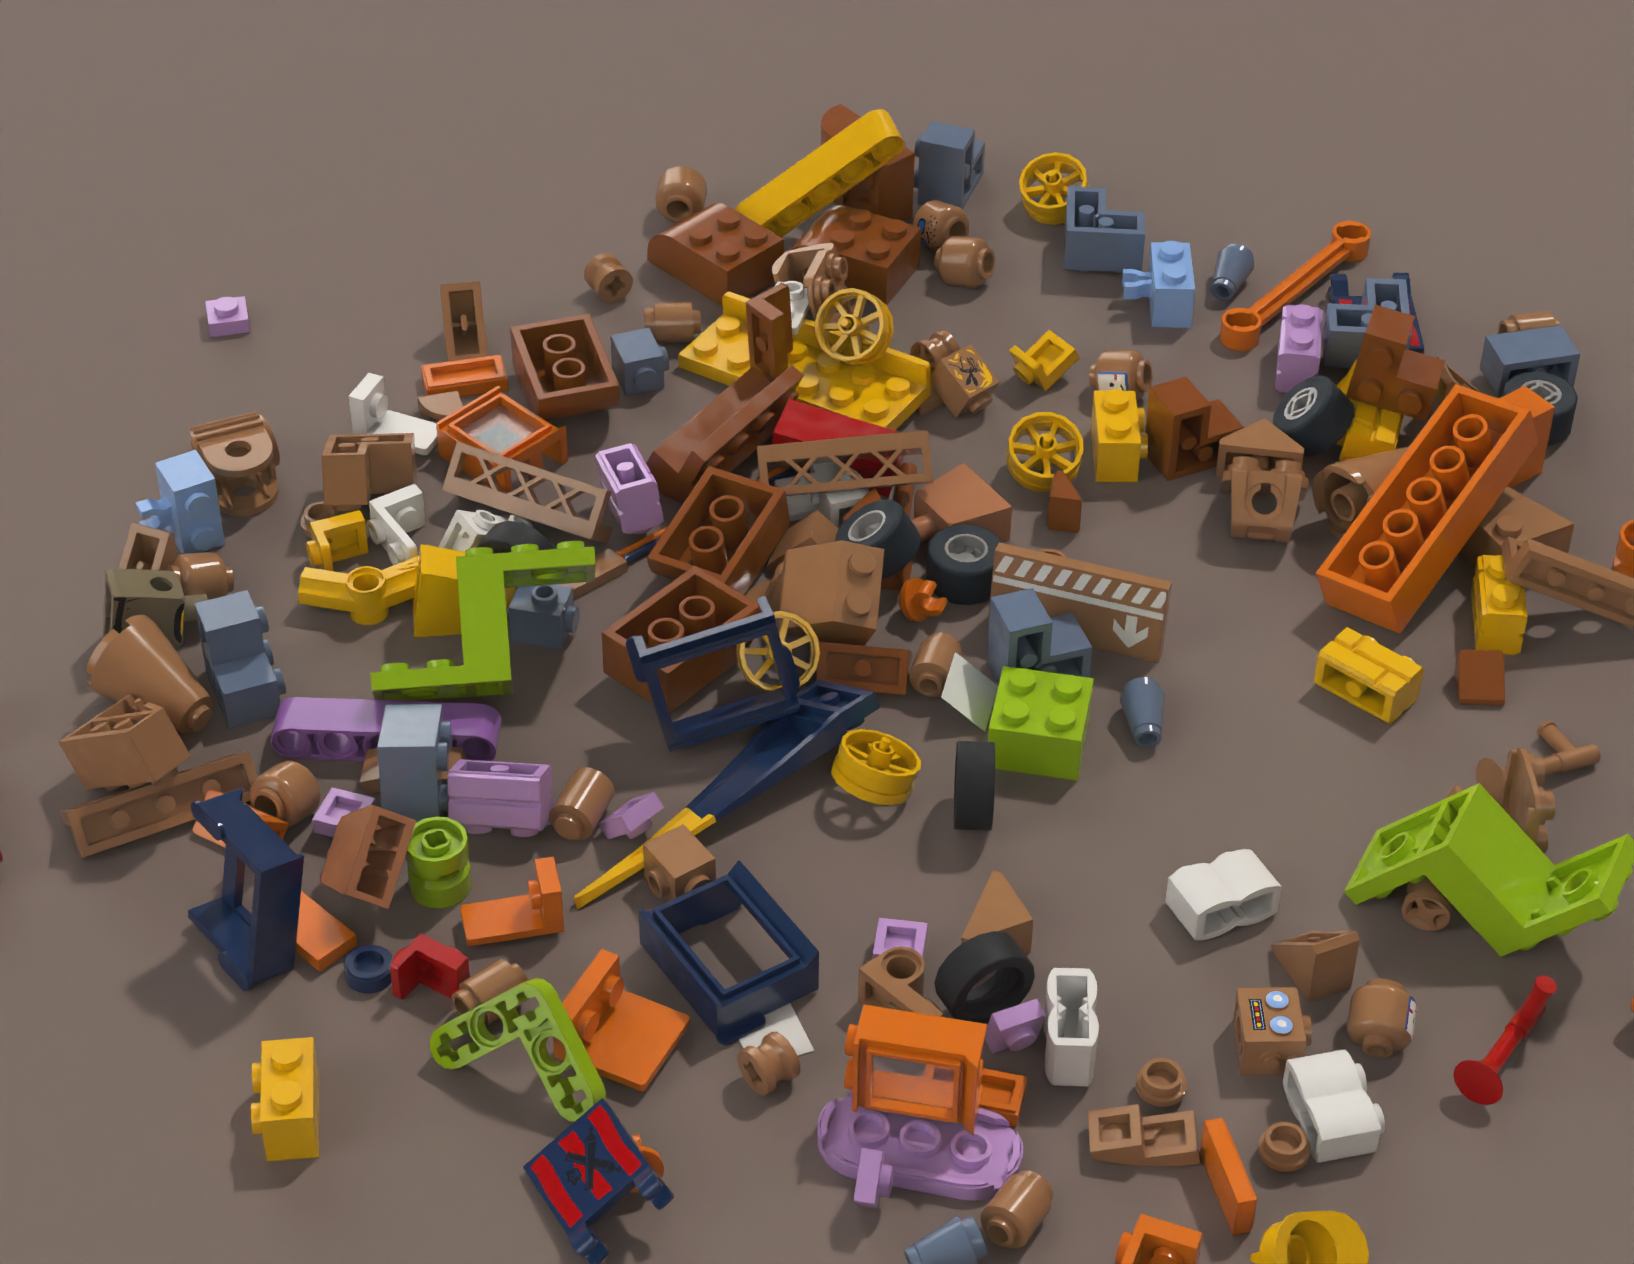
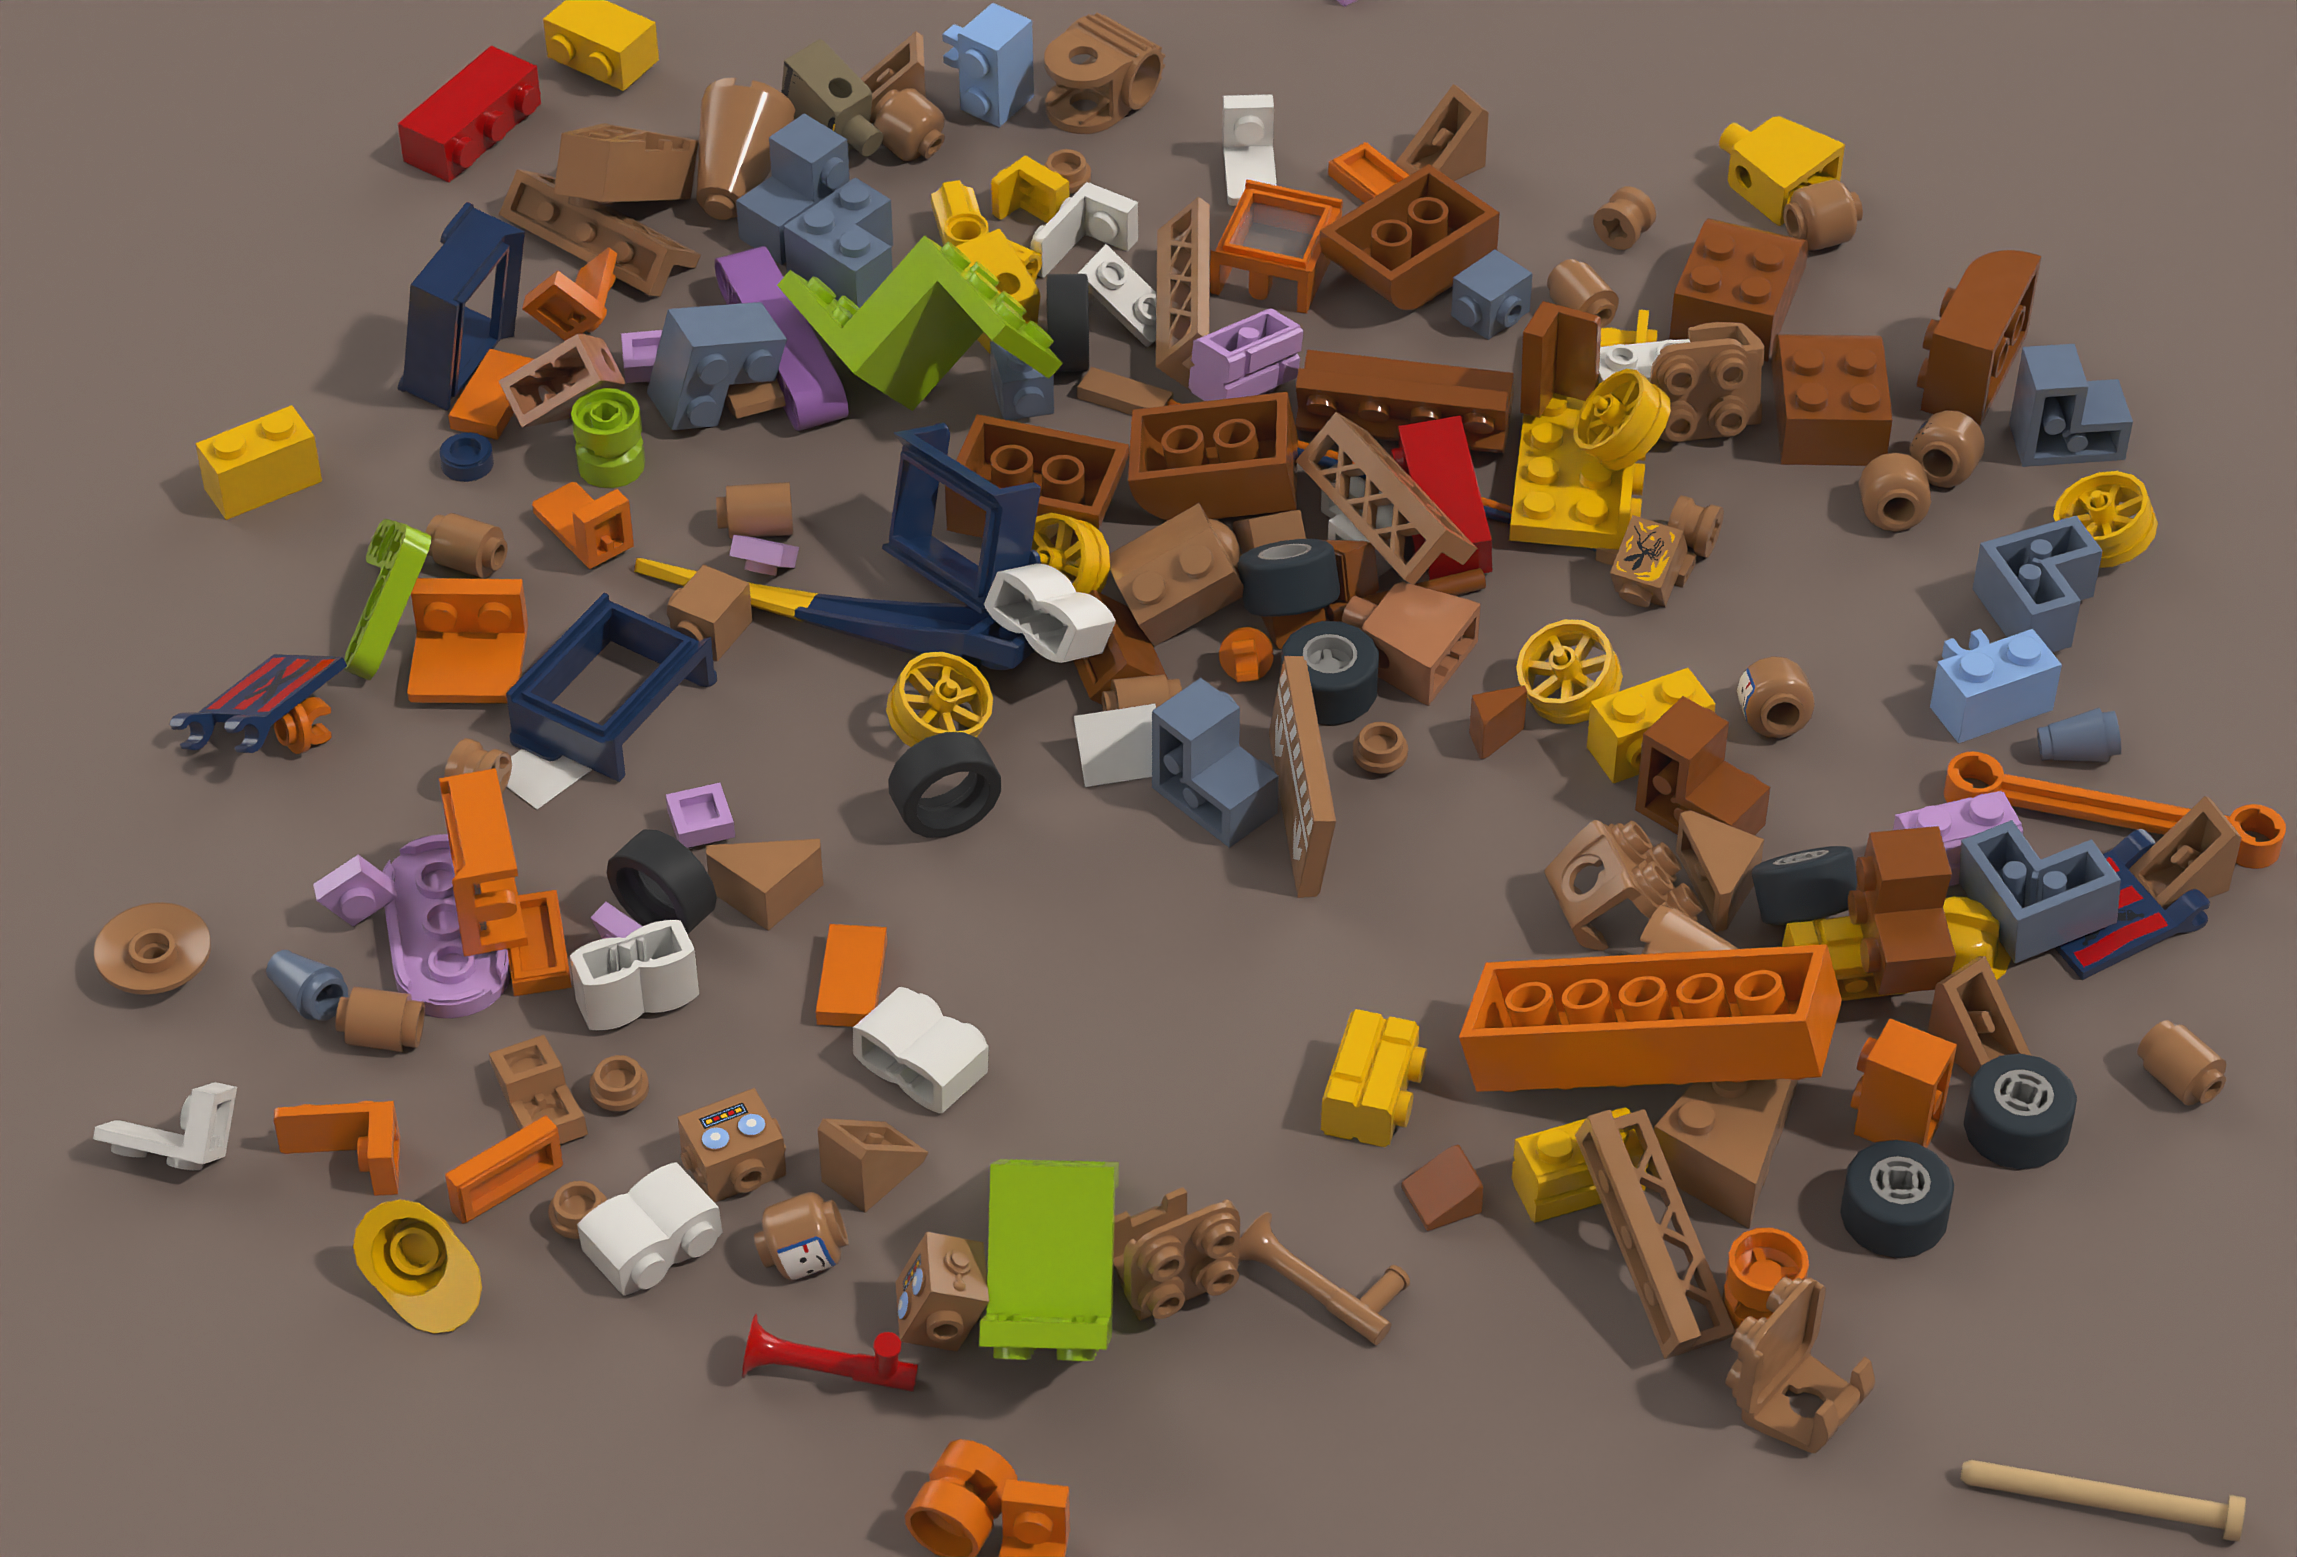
camera: 65 degrees right, 5 degrees up
(286, 792) = (643, 300): medium nougat head -> none
(320, 663) = (843, 241): none -> sand blue brick
(364, 466) = (1136, 152): medium nougat brick -> none
(430, 964) = (473, 483): red bracket -> none
(439, 405) = (1315, 180): medium nougat tile -> none
(500, 796) = (721, 440): lavender brick -> none
(612, 197) = (1777, 161): none -> yellow torso
(825, 173) = (1890, 296): yellow beam -> none
(840, 666) = (1049, 612): none -> white brick
(896, 982) = (619, 820): medium nougat plate -> none
(1040, 722) = (1097, 814): lime brick -> none
(1044, 360) = (1753, 623): yellow bracket -> none
(1114, 914) = (851, 974): none -> orange tile
(1144, 709) = (1182, 899): sand blue cone -> none
(1364, 256) = (2190, 856): none -> medium nougat slope
(1486, 950) = (941, 1291): none -> medium nougat head
(1530, 350) = (2113, 1073): sand blue brick -> none
(1587, 483) = (1897, 1198): none -> black wheel

